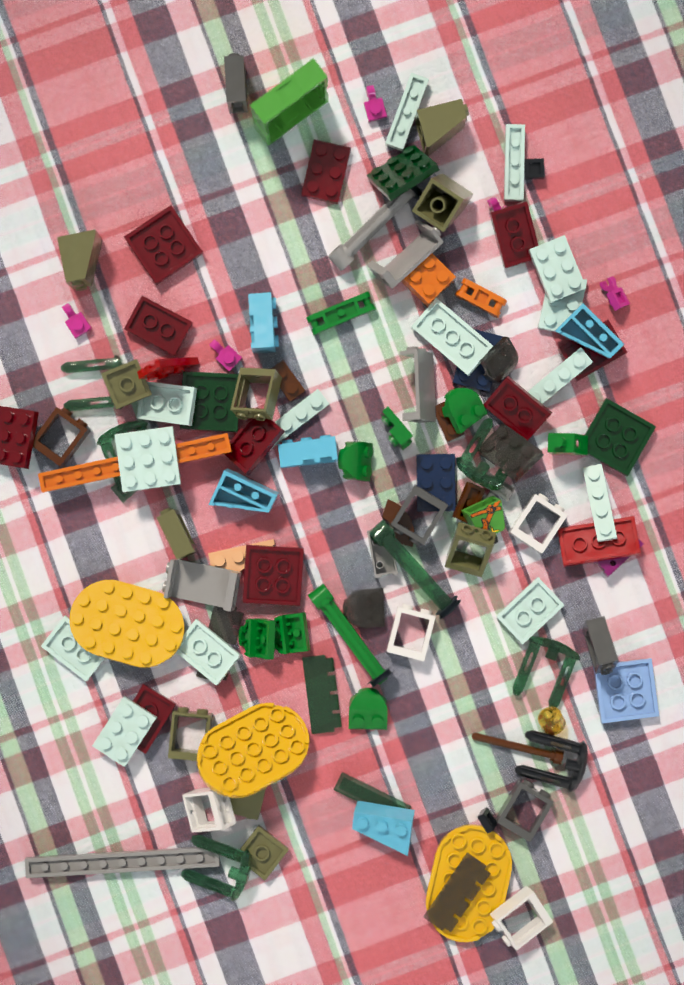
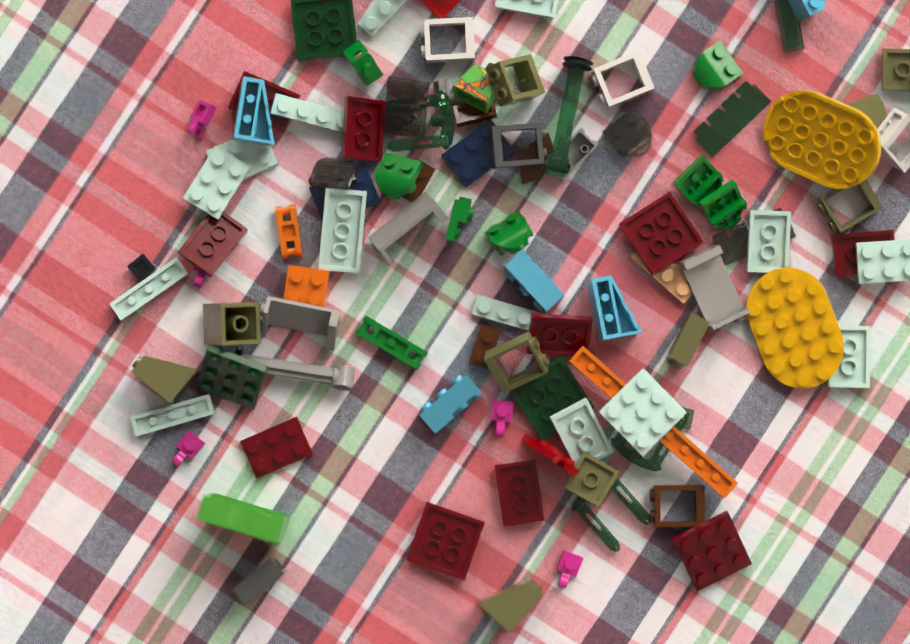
camera: 125 degrees left, 0 degrees up
(324, 600) = (650, 173): green piece -> none

